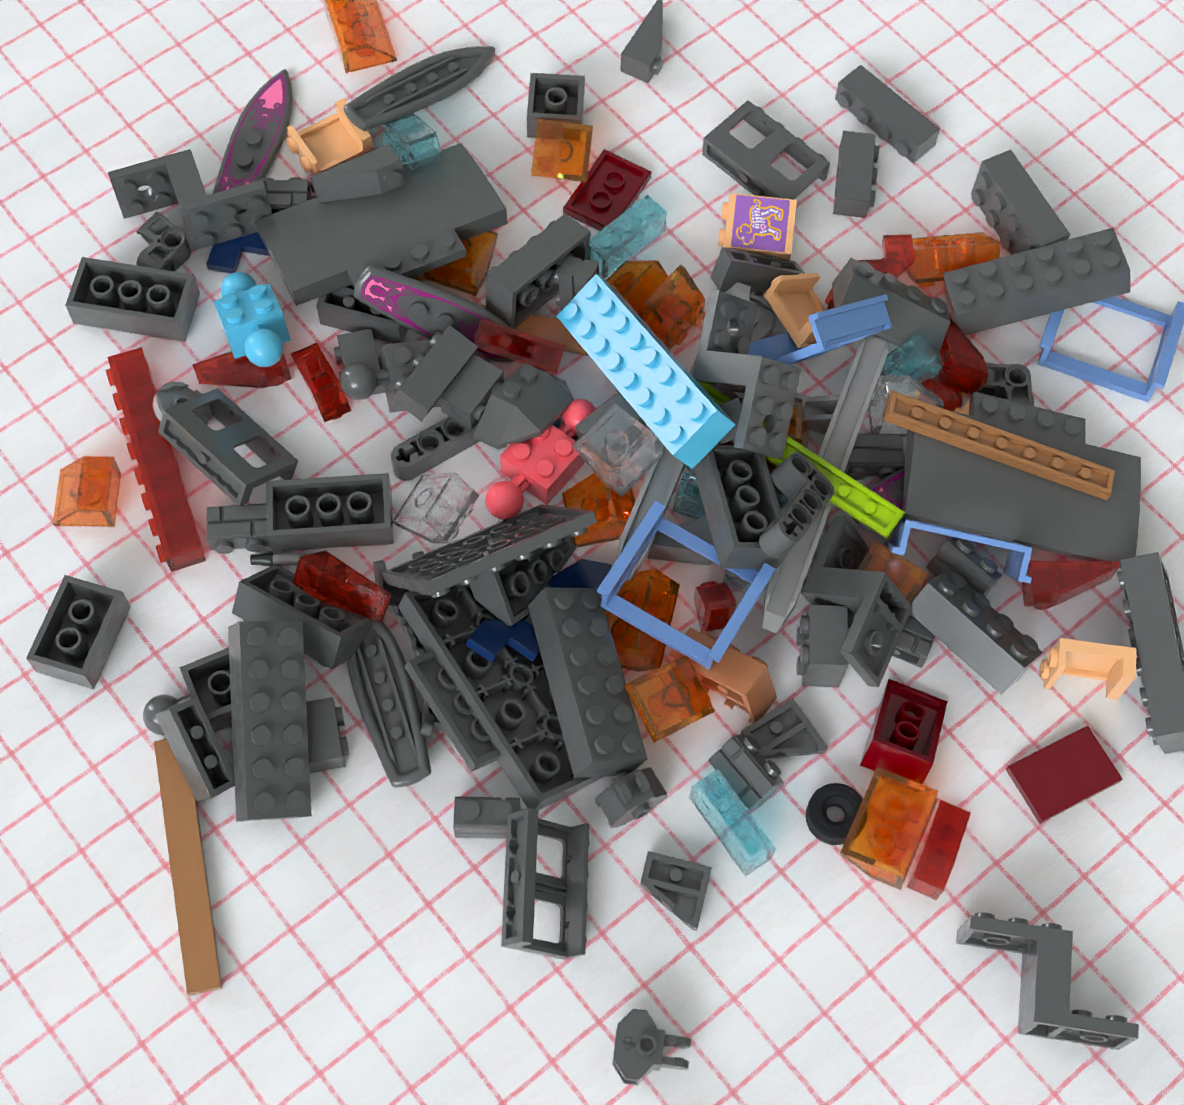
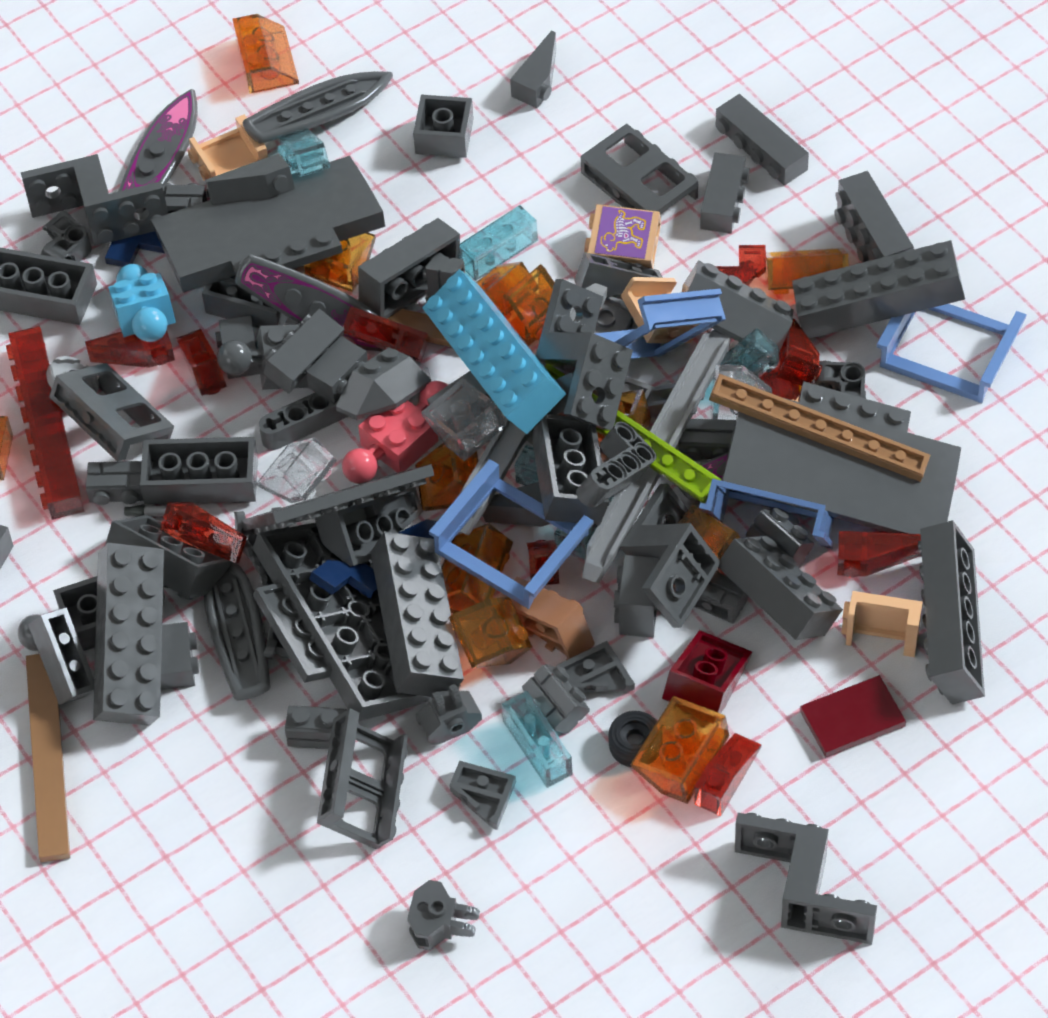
camera: 10 degrees right, 10 degrees down
(561, 150) = (442, 164): clear orange slope -> none
(609, 190) = (485, 201): dark red tile -> none

